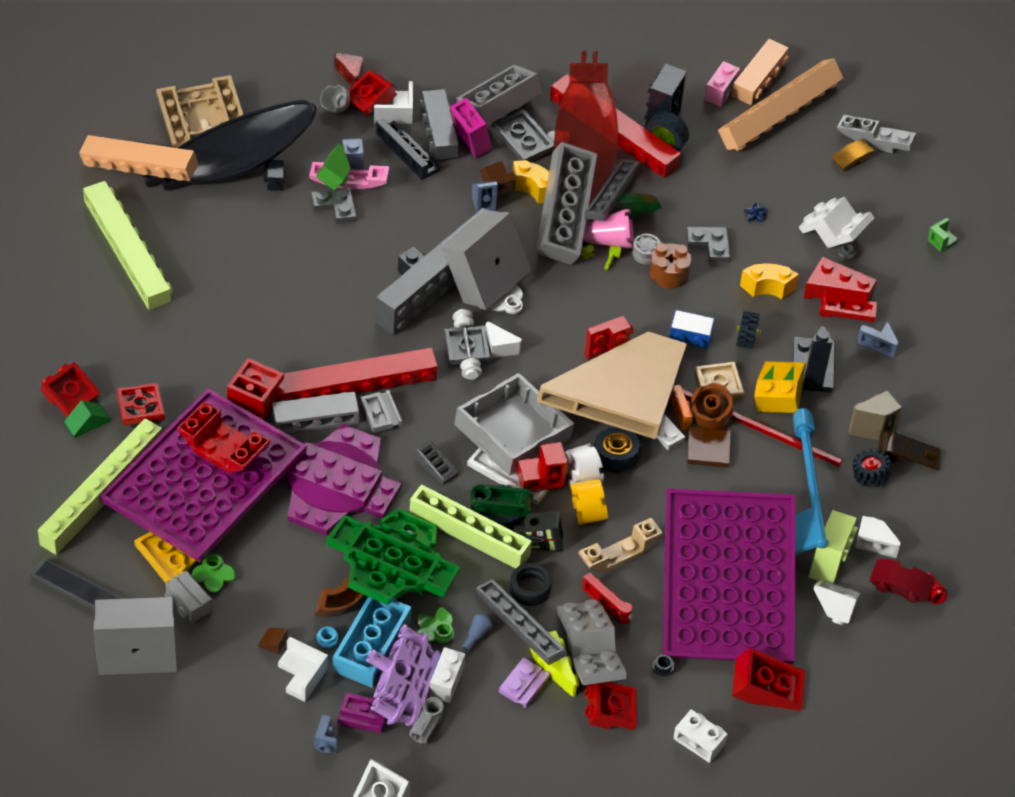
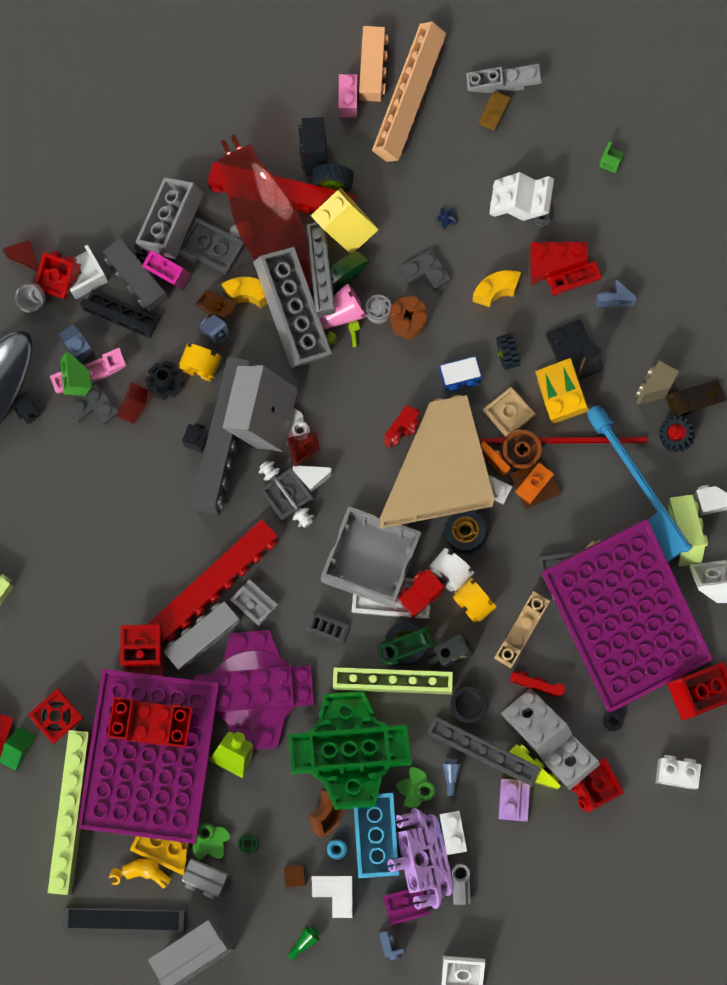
camera: 20 degrees left, 25 degrees up
(135, 560) = (140, 867): none -> yellow arm
(247, 590) = (248, 843): none -> dark green wheel
(249, 693) = (307, 938): none -> green cone
(283, 509) = (234, 754): none -> lime torso
(372, 215) = (132, 403): none -> clear red slope
(414, 212) = (170, 386): none -> black plant
(454, 208) = (199, 361): none -> yellow brick
(507, 315) = (303, 447): none -> clear red slope
(657, 164) = (344, 221): none -> light yellow slope
(707, 442) = (534, 483): none -> orange plate

